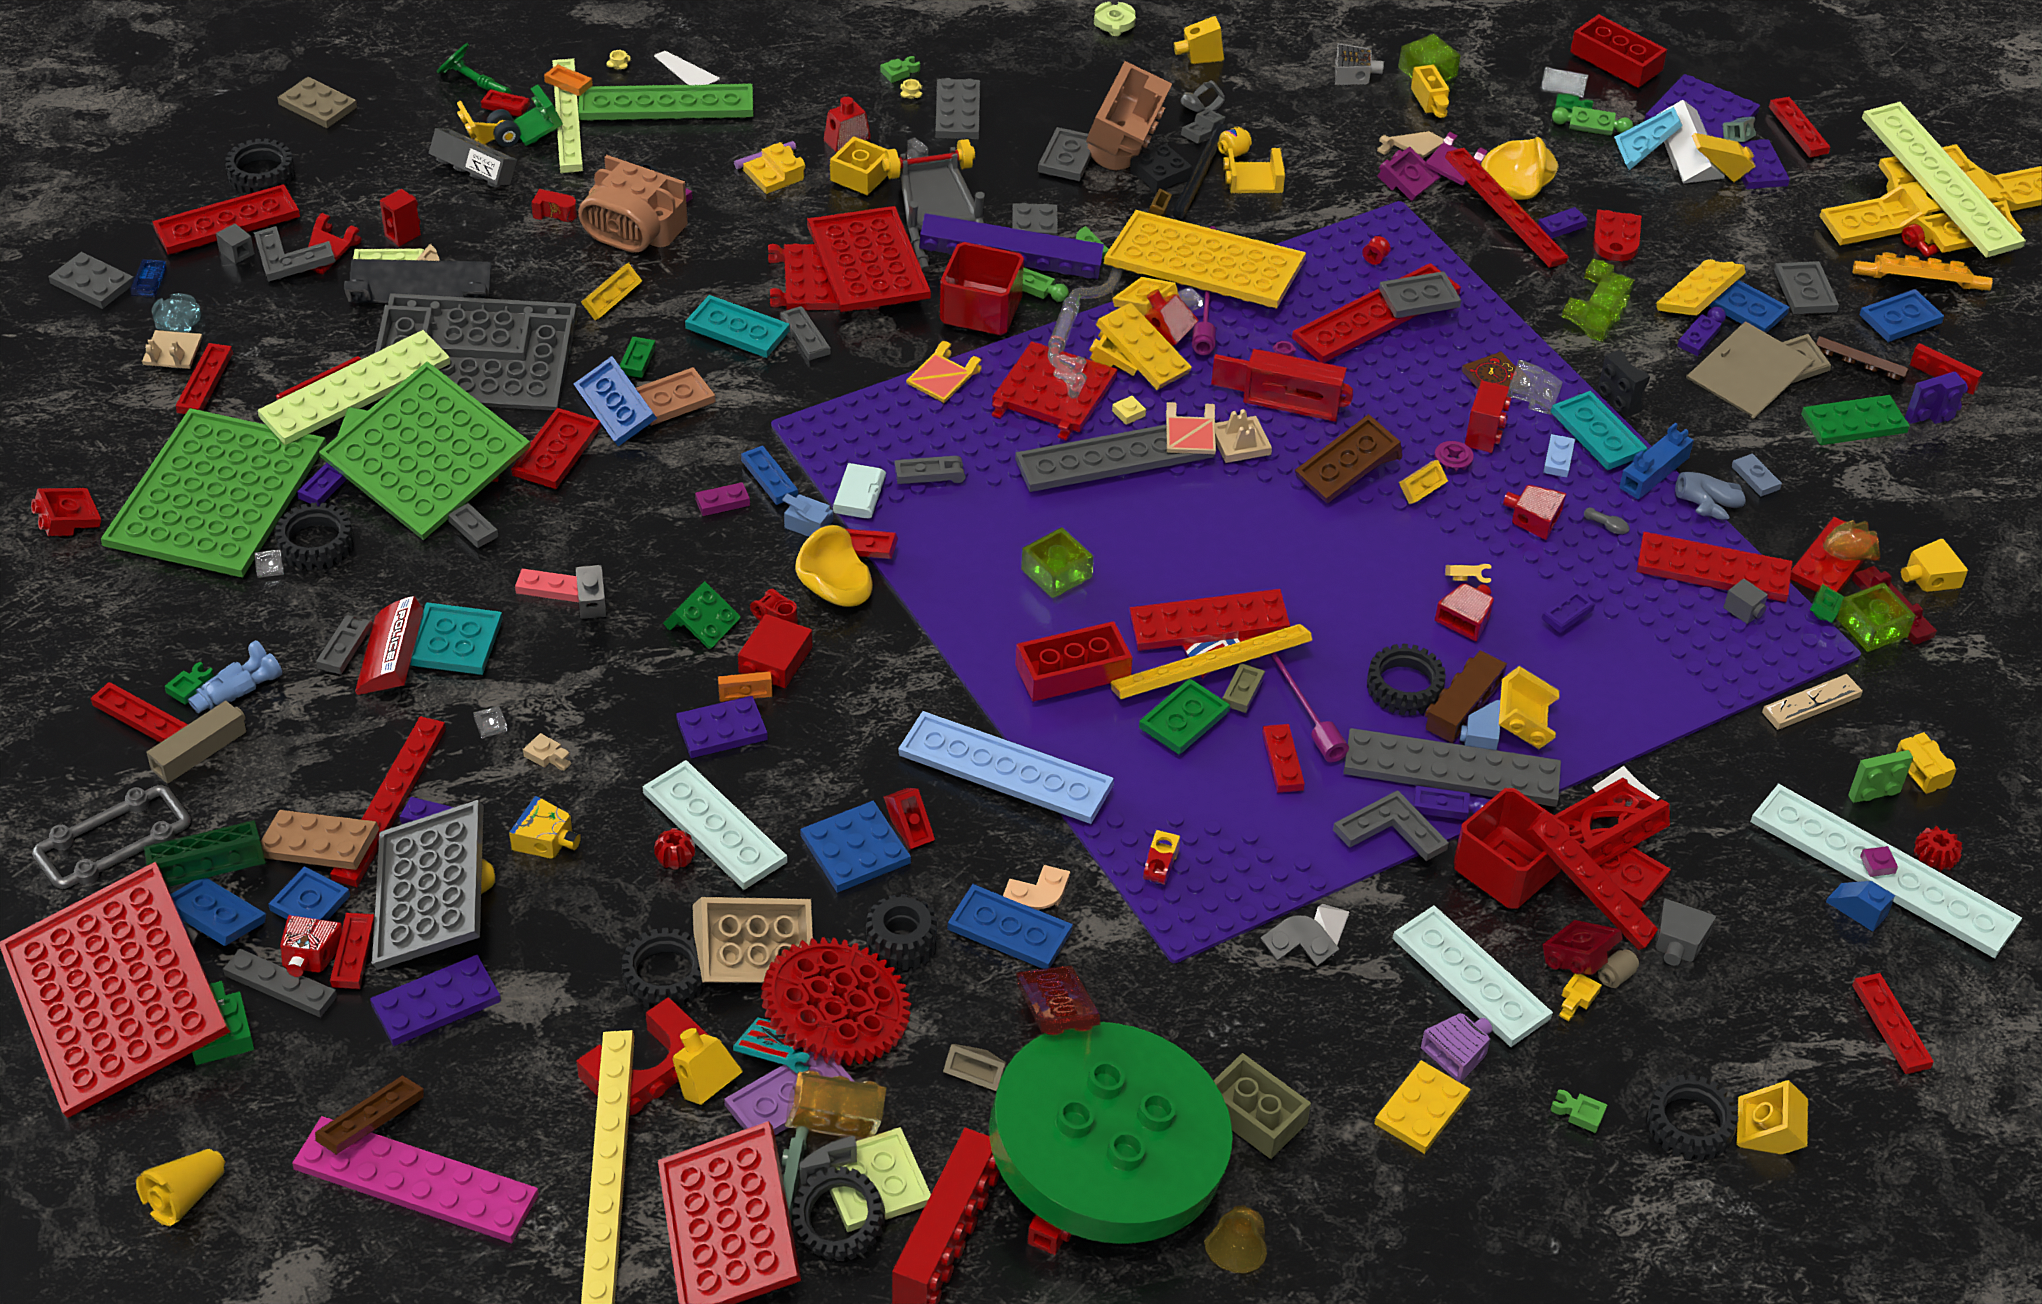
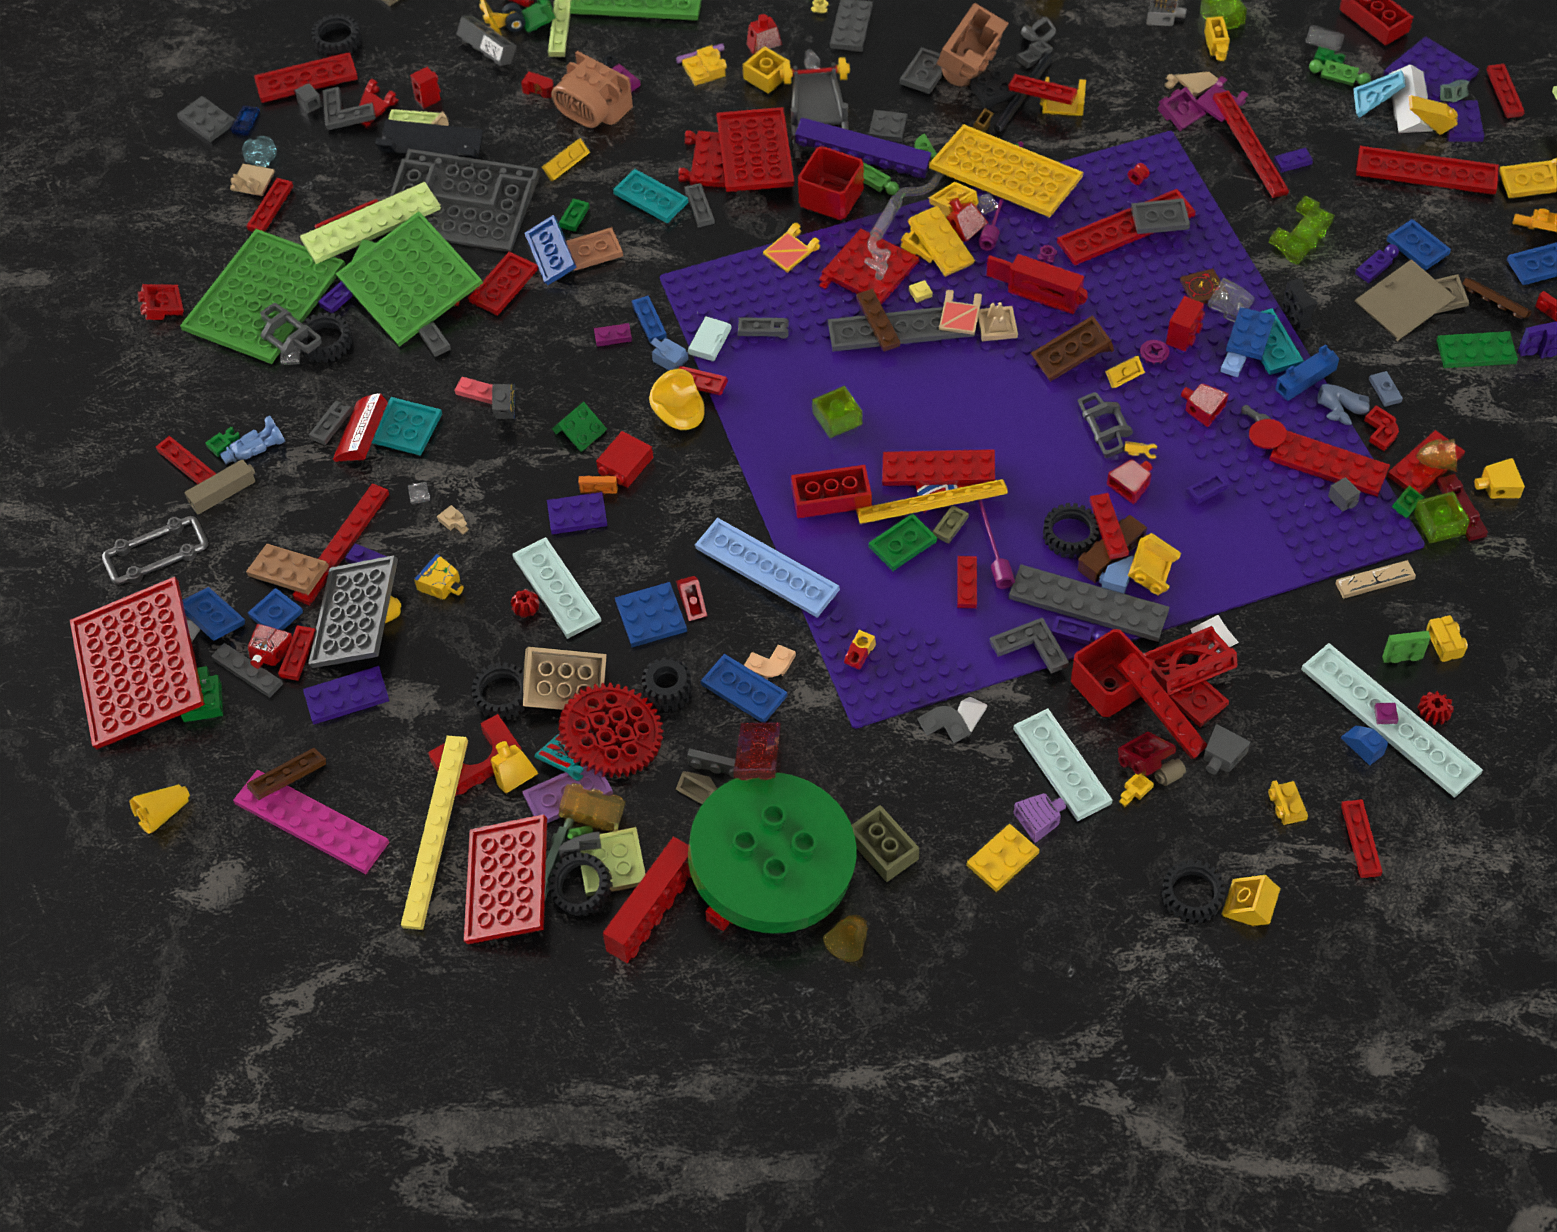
camera: 15 degrees right, 10 degrees up
(226, 854) = (218, 576): dark green fence -> none
(273, 540) = (295, 338): none -> dark grey bar
(775, 605) = (631, 425): red piece -> none
(817, 1142) = (575, 832): none -> bright green hand
(995, 1028) = (712, 762): none -> dark grey plate
(1084, 446) = (878, 320): none -> reddish brown plate
(1229, 161) = (1043, 89): none -> red plate
(1234, 138) = (1054, 70): yellow head -> none
(1436, 552) = (1118, 431): none -> dark grey bar
(1458, 666) = (1109, 526): none -> red plate
(1521, 167) = (1269, 111): yellow piece -> none
(1572, 421) = (1250, 333): none -> blue plate
(1583, 1111) = (1115, 877): bright green plate -> none
(1616, 232) = (1333, 172): red plate -> none
(1628, 538) = (1267, 433): none -> red piece
(1701, 287) = (1385, 226): yellow plate -> none
(1732, 221) = (1427, 170): none -> red plate
(1773, 522) = (1386, 427): none -> red plate
(1782, 989) = (1288, 802): none -> yellow bracket
(1806, 287) = (1470, 233): dark grey plate -> none

